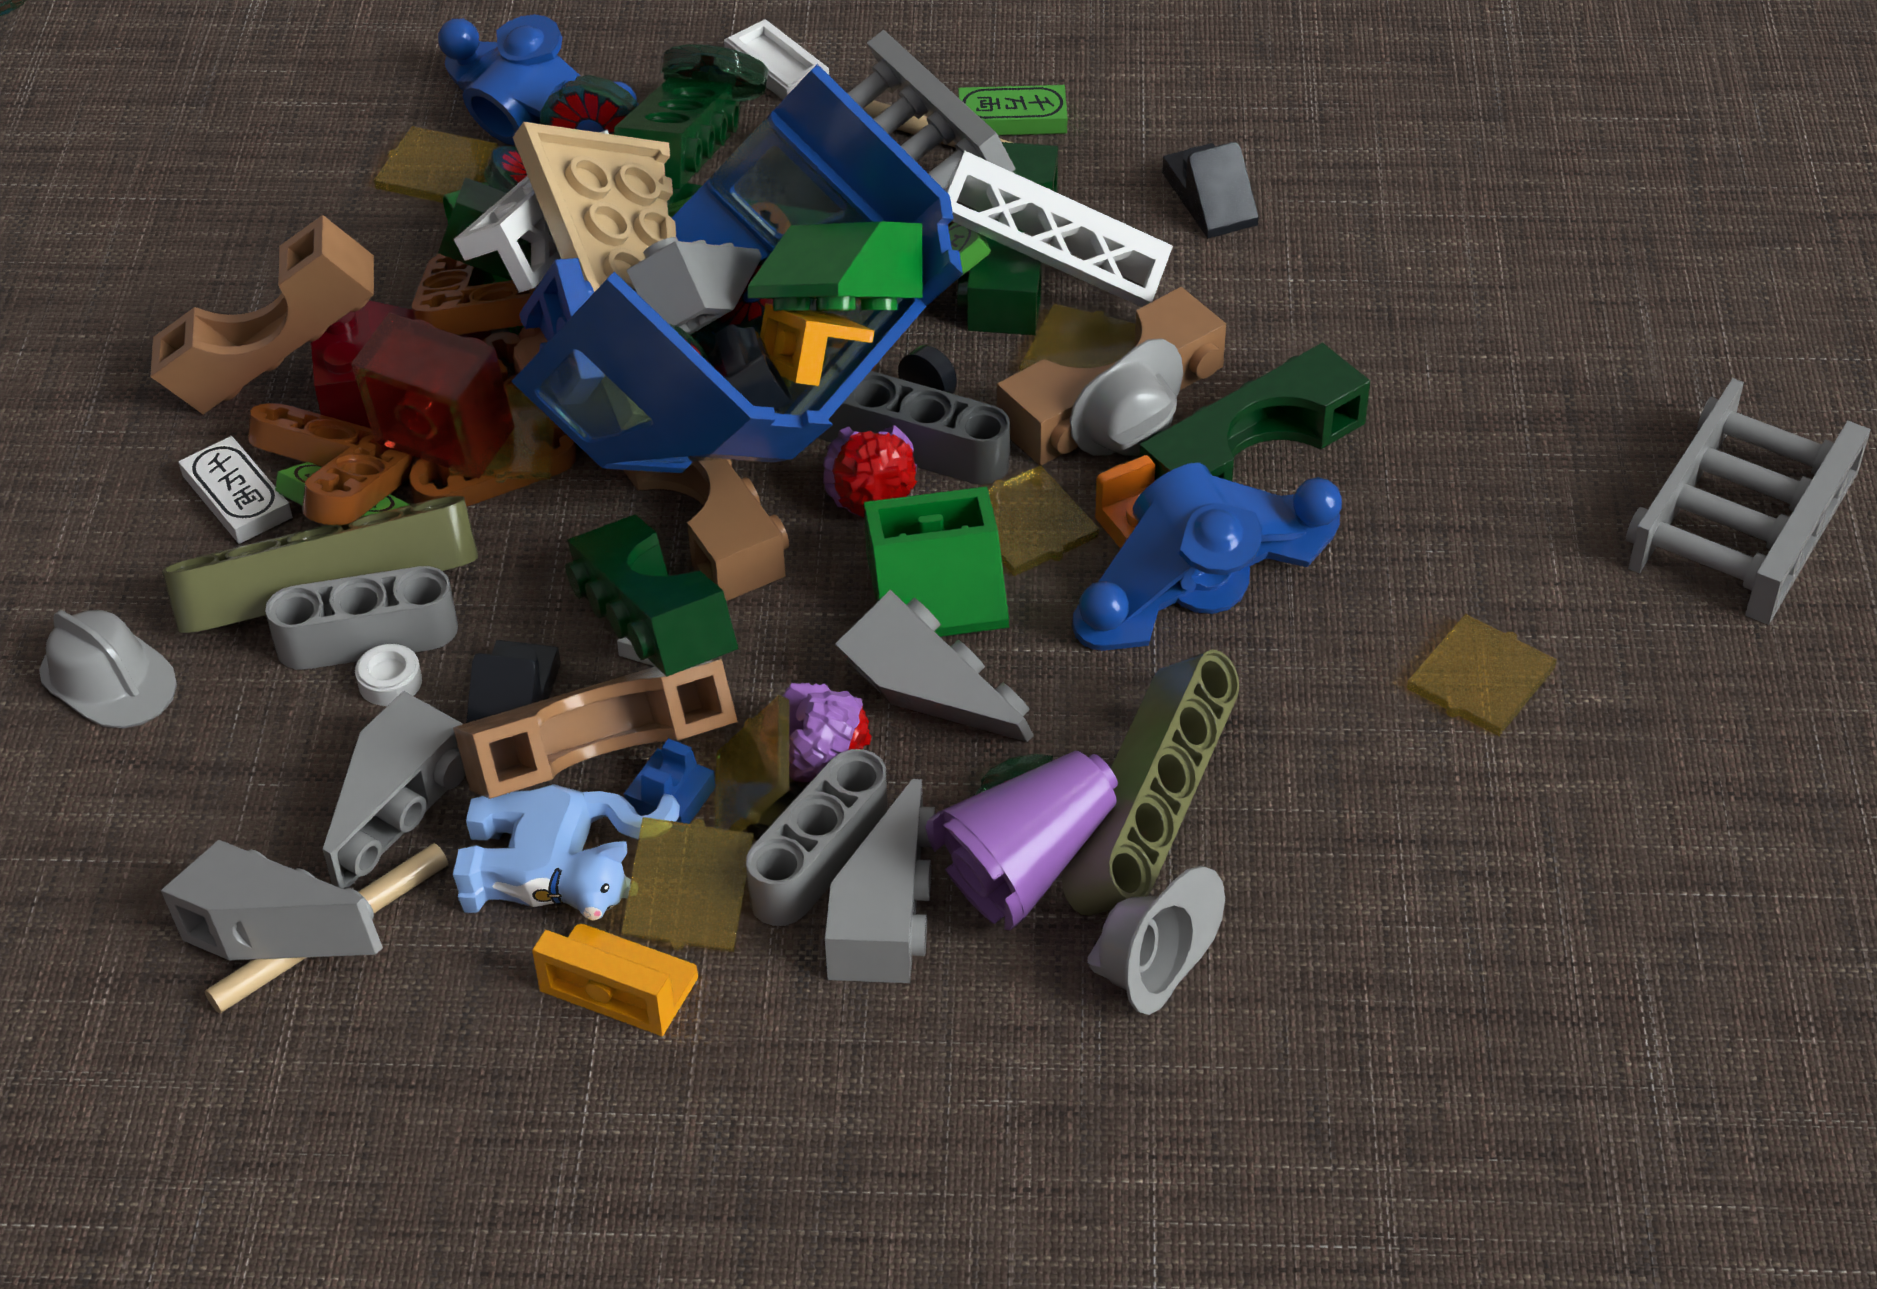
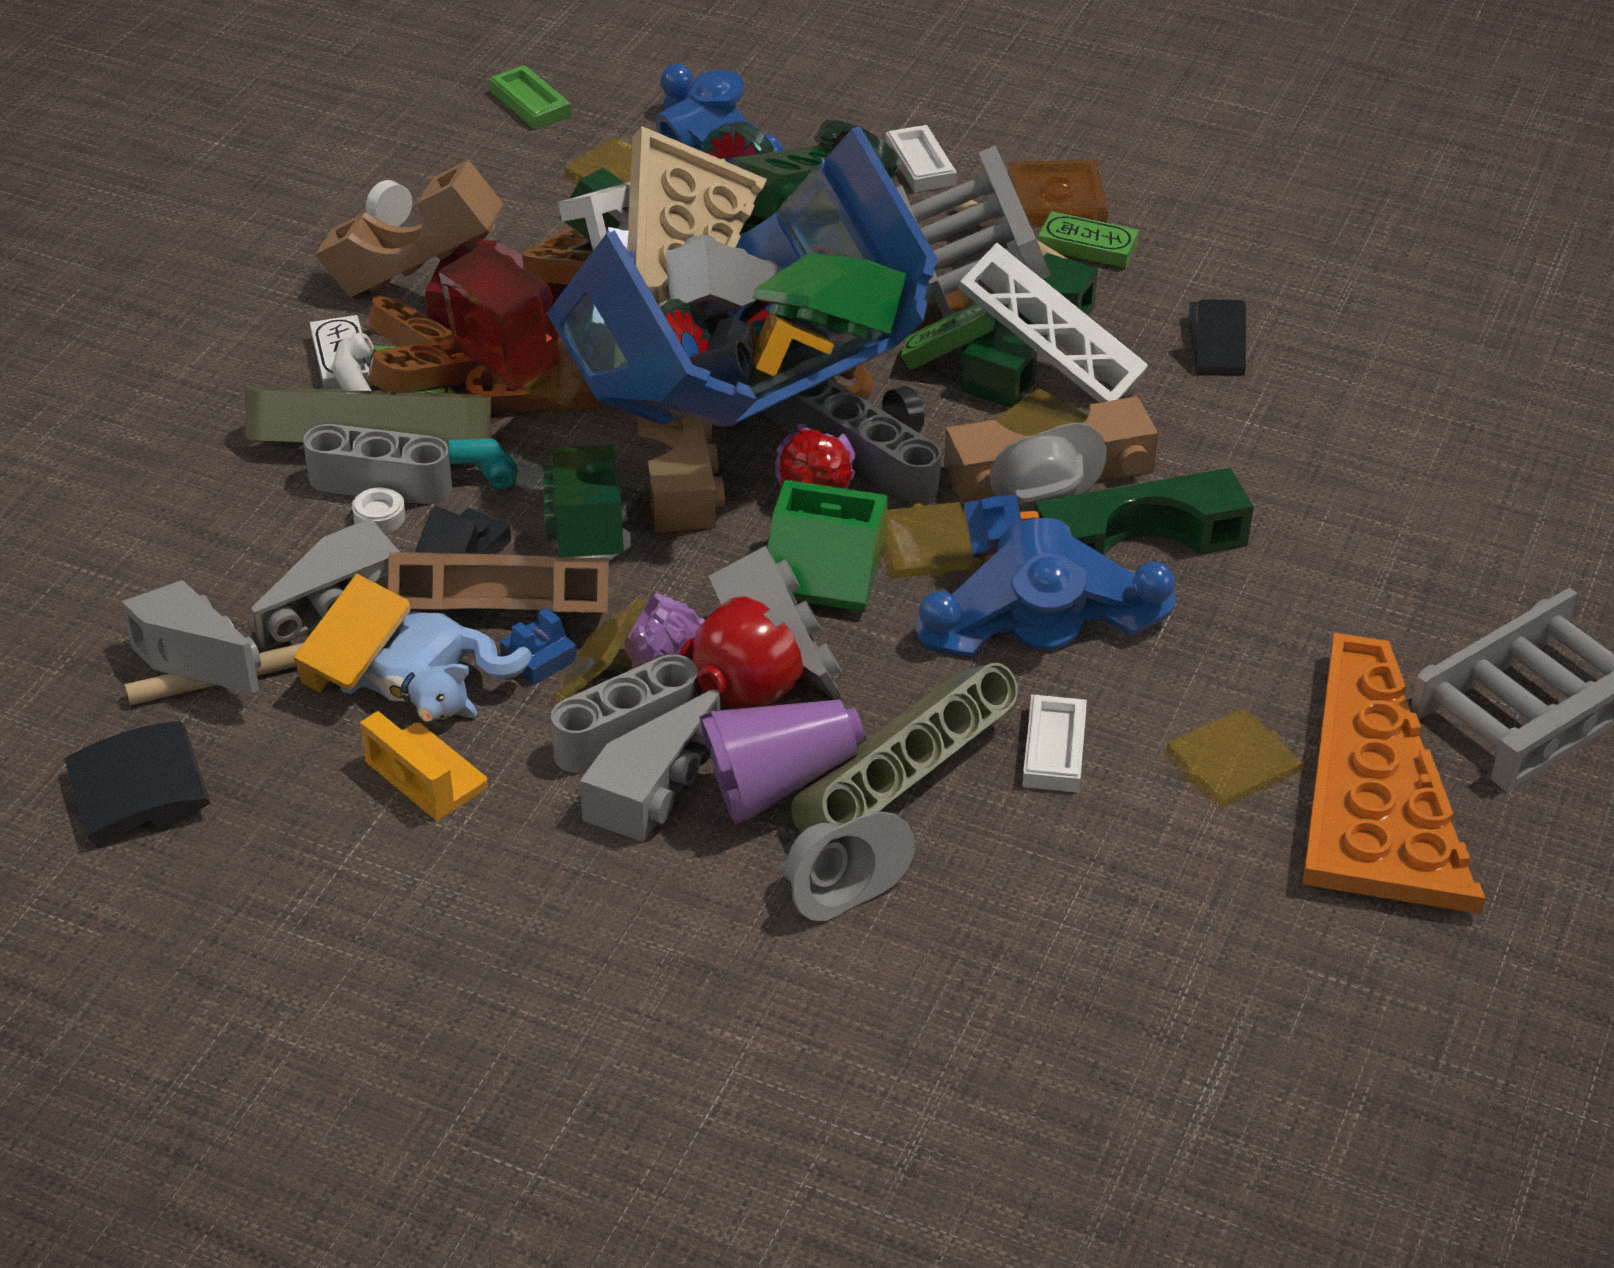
camera: 20 degrees right, 5 degrees down
(105, 670) = (180, 449): light grey piece -> none
(194, 283) = (389, 203): none -> white tile
(261, 501) = (349, 361): none -> white arm
(284, 102) = (530, 97): none -> bright green tile
(289, 1108) = (135, 780): none -> black slope
(464, 845) = (350, 635): none -> light orange panel
(489, 571) = (488, 457): none -> teal arm
(687, 884) = (506, 716): clear yellow piece -> none
(928, 725) = (746, 655): none -> red cylinder
(961, 54) = (1059, 187): none -> clear orange tile
(1111, 485) = (988, 521): none -> blue tile
(1292, 719) = (1054, 743): none -> white tile
(1651, 669) = (1377, 794): none -> orange wing

